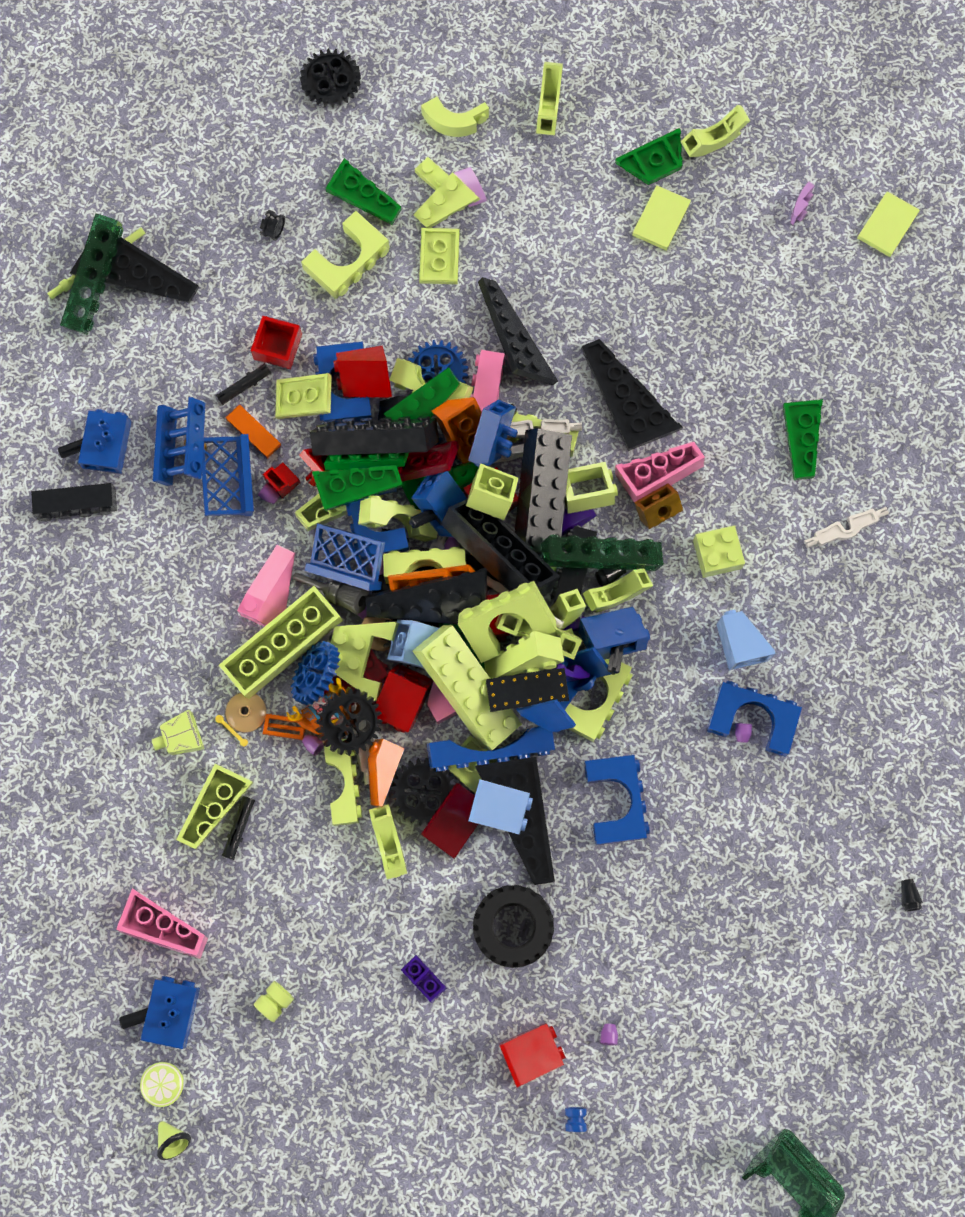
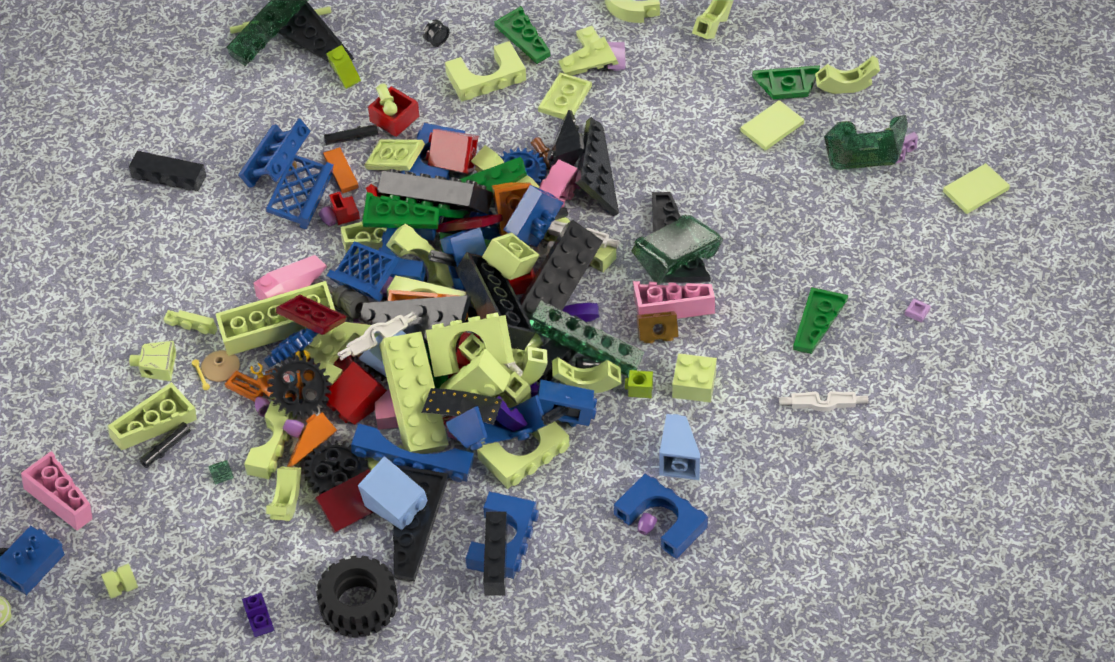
camera: 25 degrees right, 25 degrees down
(103, 442) = (214, 138): blue piece -> none
(189, 676) = (189, 320): none -> yellowish green hinge
(197, 305) = (343, 67): none -> lime slope
(275, 344) = (386, 100): none -> yellowish green pin
(308, 834) = (221, 472): none -> clear green tile
(322, 637) = (311, 314): none -> dark red tile
(361, 764) = (293, 427): none -> medium lavender hose
(401, 653) = (368, 340): none -> white piece
(452, 336) = (540, 148): none -> dark orange pin
(474, 322) = (568, 142): none -> black wedge
(593, 499) = (601, 292): yellowish green window -> none
(628, 833) = (495, 553): none -> black brick
(641, 409) = (675, 246): none -> clear green windscreen
(675, 572) = (639, 384): none -> lime brick
(771, 215) = (862, 150): none -> clear green windscreen
(891, 389) = (917, 310): none -> lavender tile

